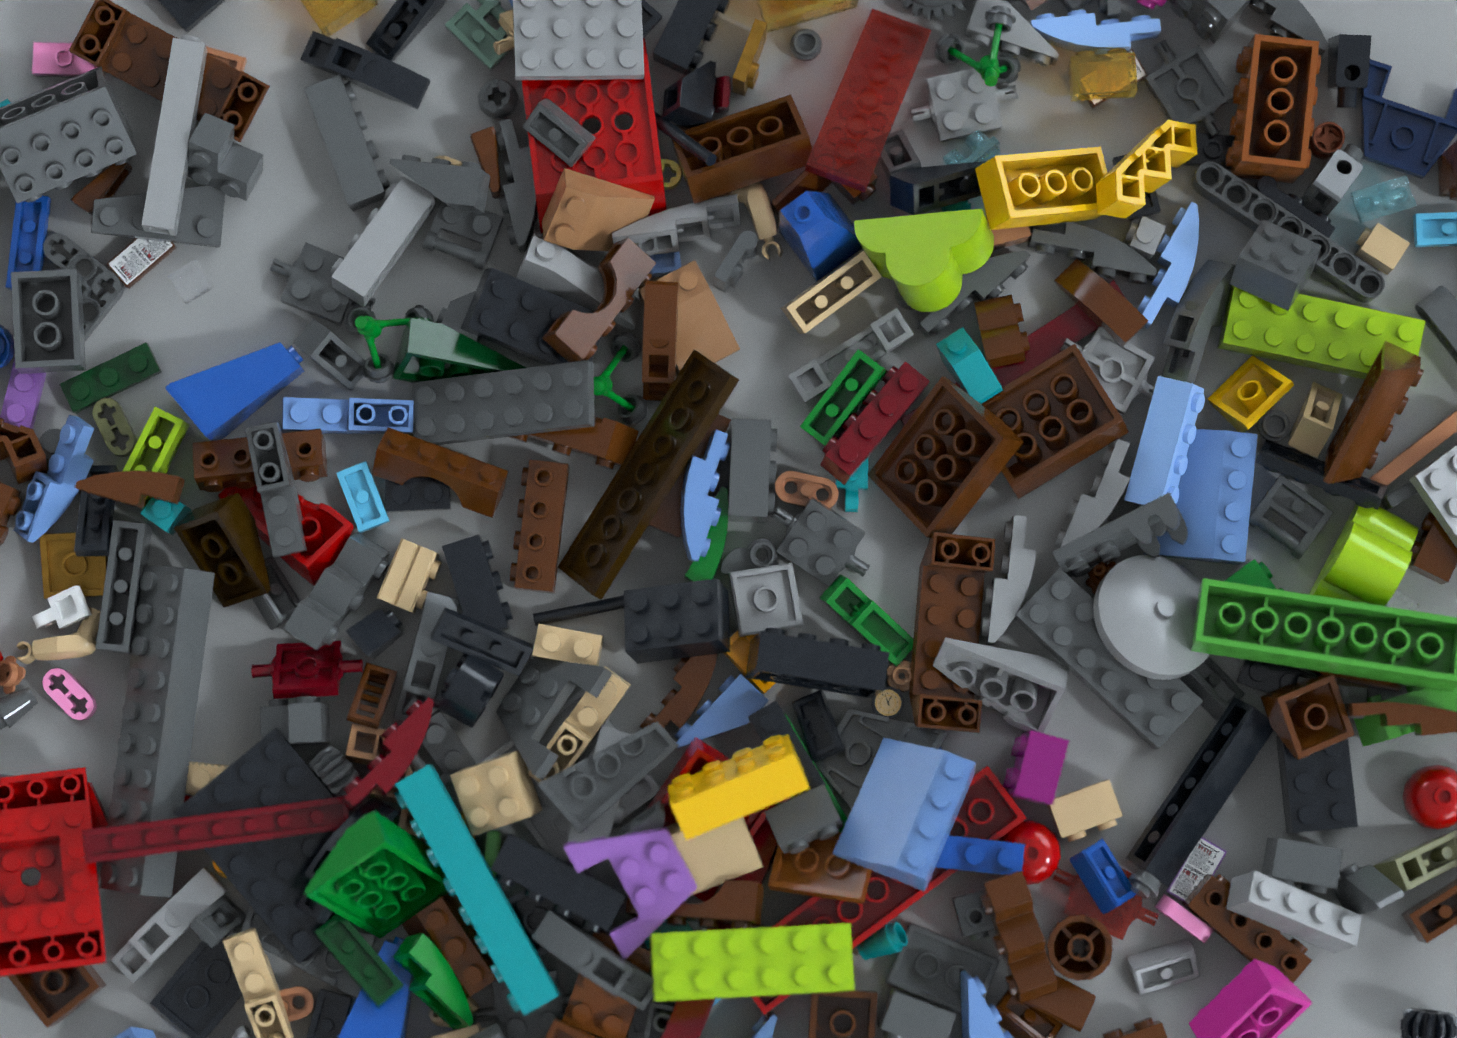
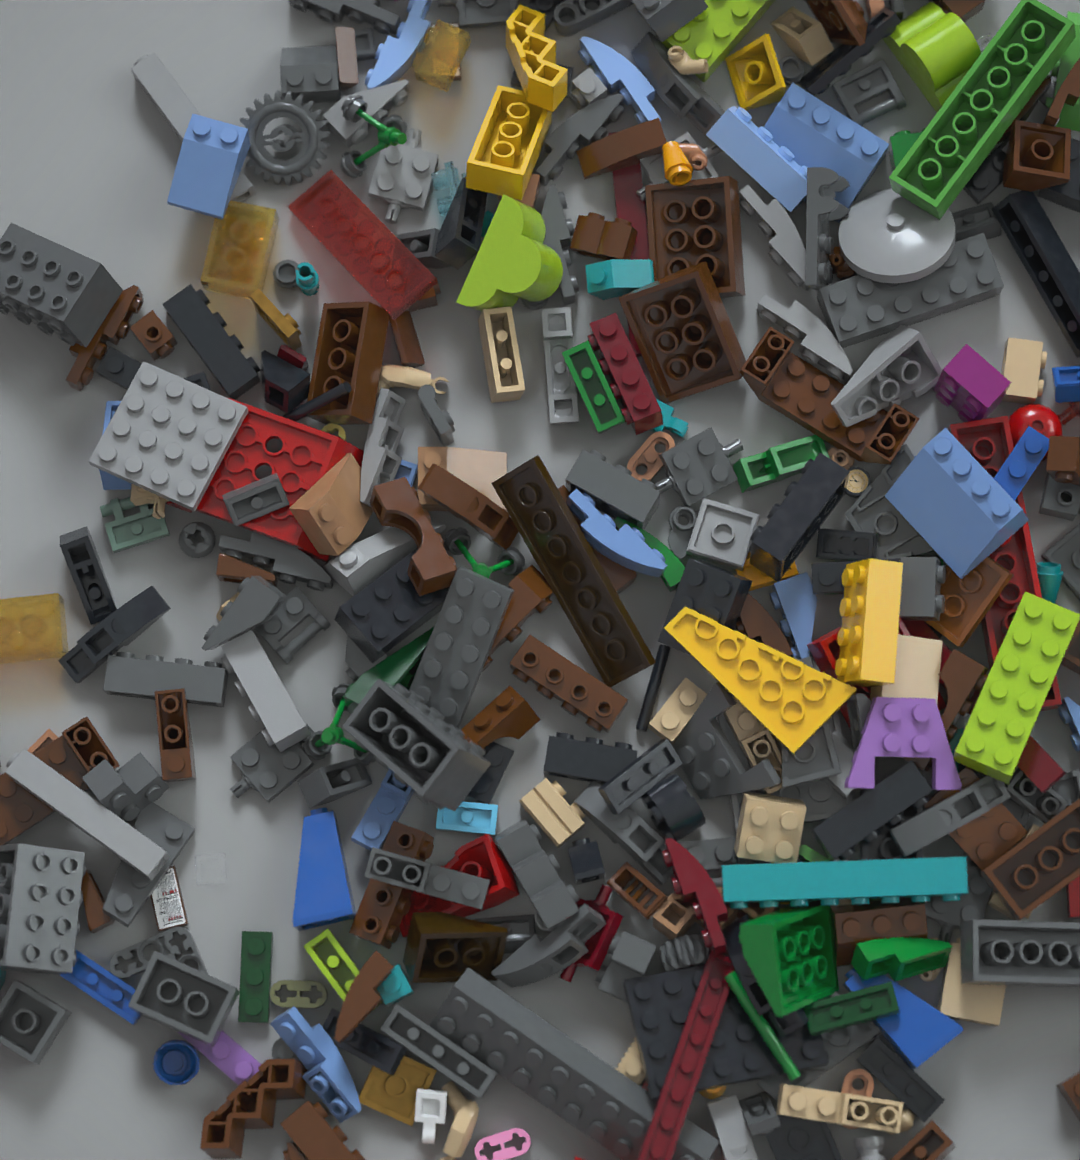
camera: 60 degrees left, 5 degrees down
(262, 641) = (545, 957): none -> dark grey slope
(294, 180) = (175, 736): none -> reddish brown slope
(296, 884) = (763, 1027): none -> green bar
(393, 411) = (417, 744): none -> dark grey brick
(628, 722) = (771, 685): none -> yellow wing
(801, 70) = (307, 279): none -> teal pin
(818, 232) = (450, 341): blue slope -> none
(1108, 362) = (676, 165): none -> light orange cone
(1132, 371) = (694, 155): none -> nougat arm
(1219, 317) = (684, 64): none -> tan arm

